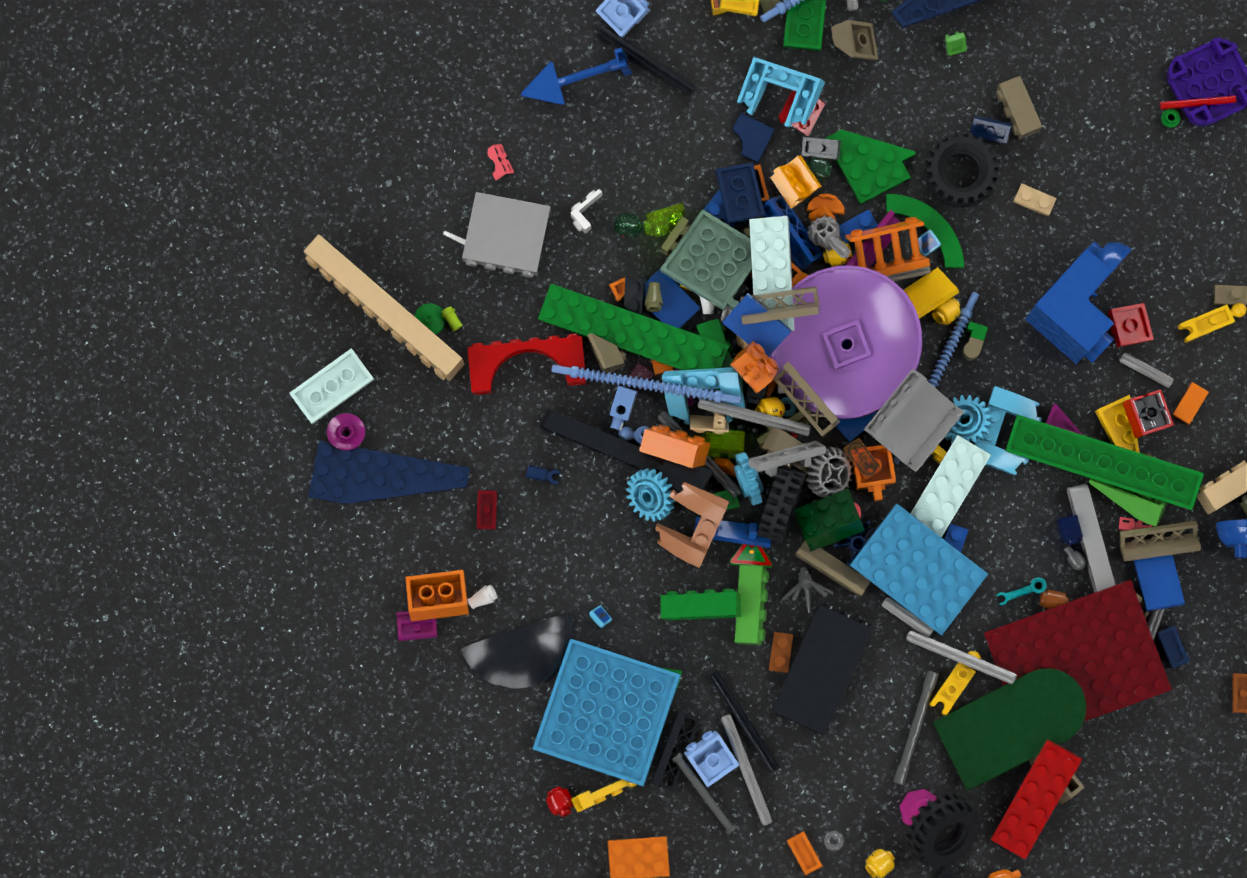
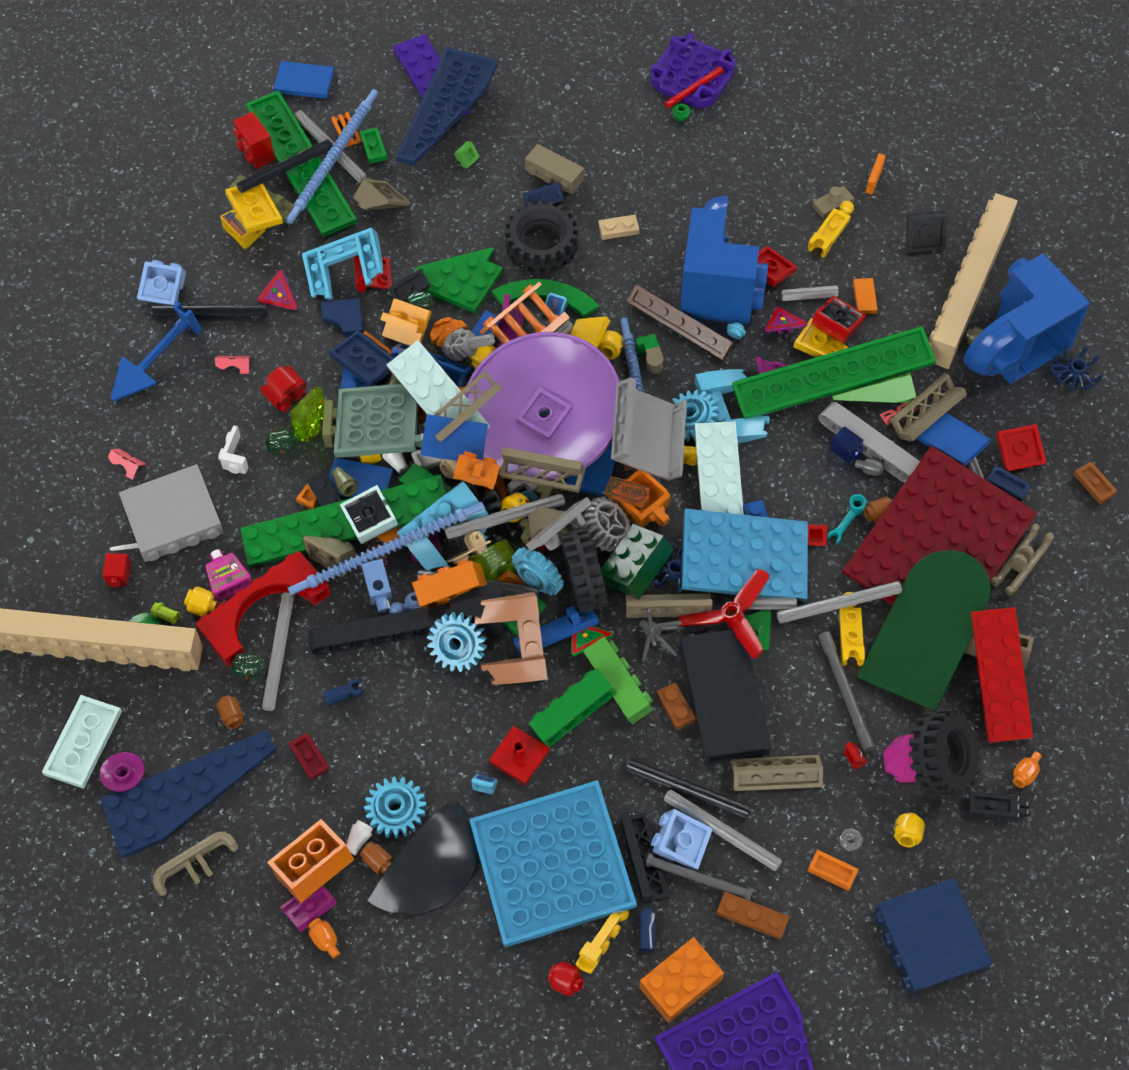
camera: 35 degrees left, 20 degrees down
(351, 532) = (189, 856): none -> dark tan piece
(412, 655) = (323, 937): none -> orange plant
(436, 257) = (116, 569): none -> red brick
(451, 435) = (230, 712): none -> dark orange brick
(483, 327) = (200, 601): none -> yellow head
(486, 406) = (247, 665): none -> clear green head
(486, 623) = (376, 858): none -> dark orange brick
(515, 317) = (226, 575): none -> dark pink torso
(516, 408) = (278, 652): none -> light grey axle
(532, 601) = (401, 819): none -> medium azure gear
(639, 612) = (519, 755): none -> red tile
(640, 806) = (647, 930): none -> dark blue bar
(642, 130) = (240, 362): none -> coral piece
(646, 353) = (369, 514): none -> piece
(659, 179) = (284, 388): none -> red brick
(712, 82) = (278, 293): none -> piece
(723, 846) = (752, 915): none -> dark orange plate
(815, 756) = (777, 774): none -> dark tan fence
(884, 609) = (733, 614): none -> red piece
(885, 630) = (760, 624): none -> green piece
(885, 781) = (854, 755): none -> red slope
(990, 586) = (817, 535): none -> red slope
(1019, 327) = (680, 322): none -> plate
(1058, 365) = (736, 330): none -> medium azure plate
(1103, 383) = (783, 320): none -> piece
(1130, 717) = (1022, 560): none -> dark tan piece
(1206, 625) = (1021, 448): none -> red hinge

